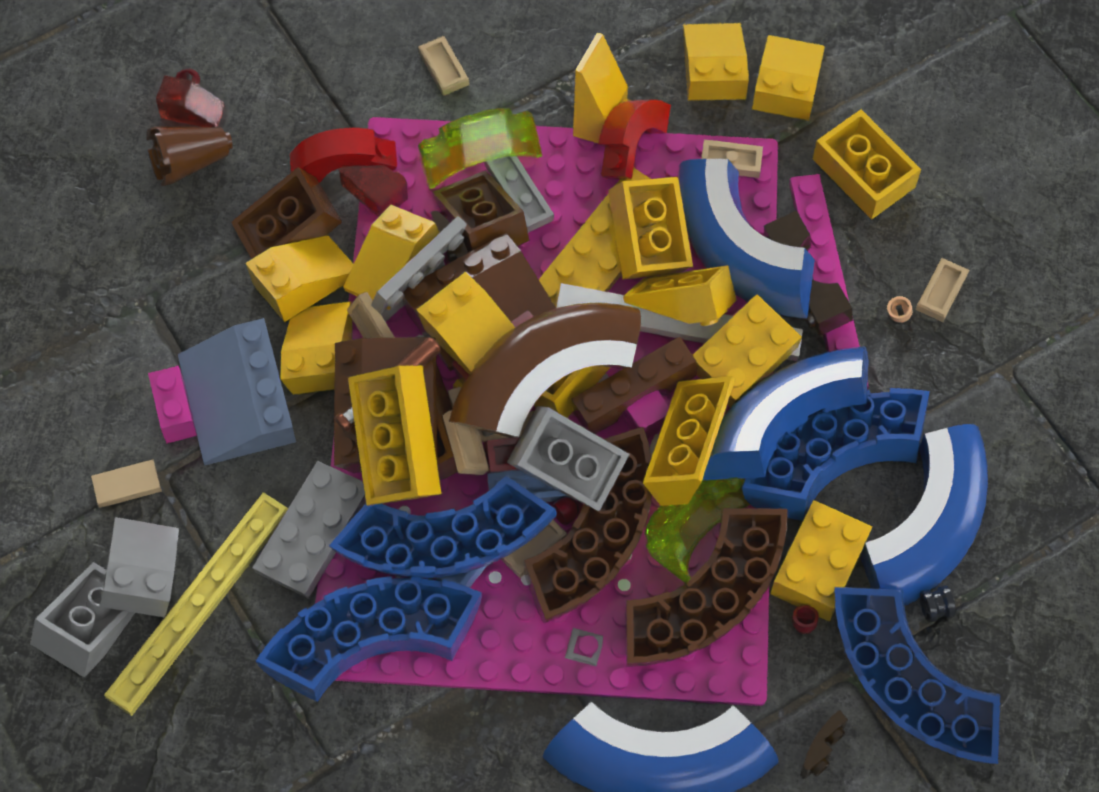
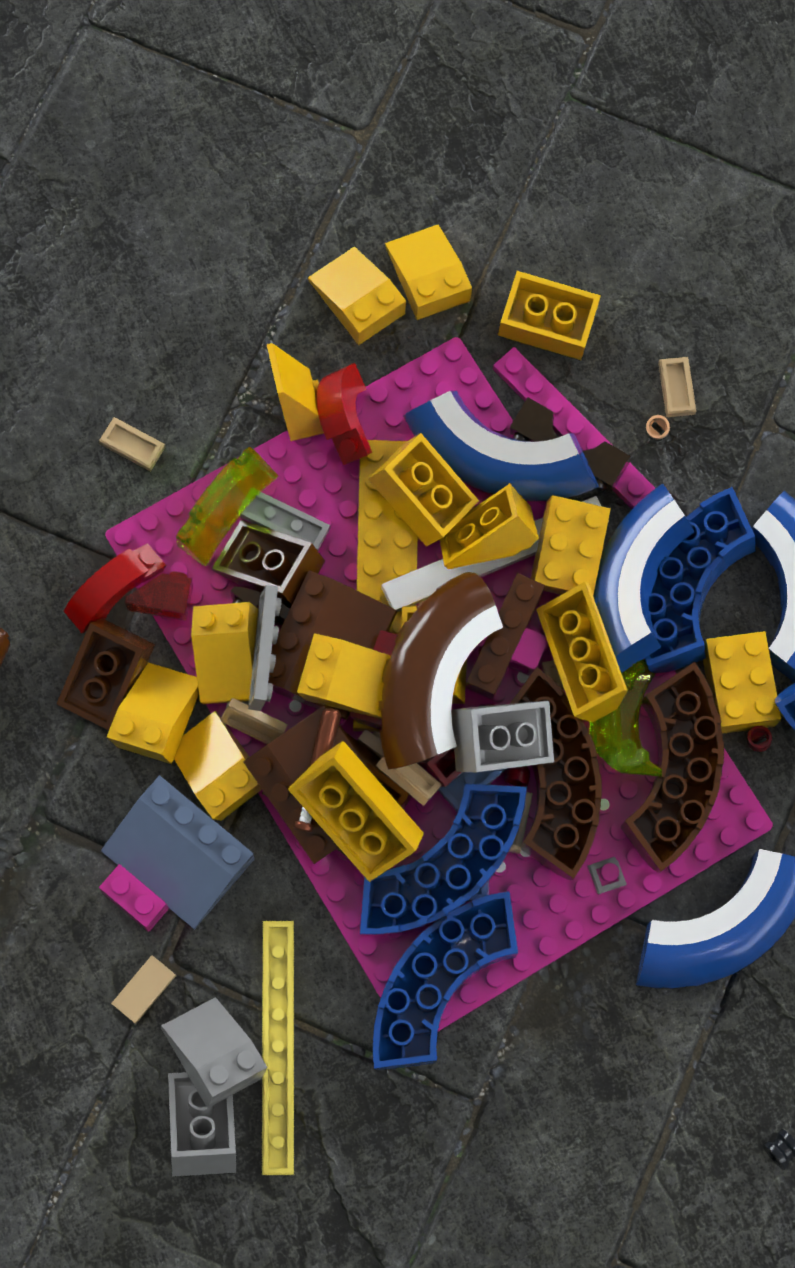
camera: 40 degrees left, 10 degrees up
(301, 542) = (327, 925): light grey plate -> none
(744, 157) = (437, 379): tan plate -> none

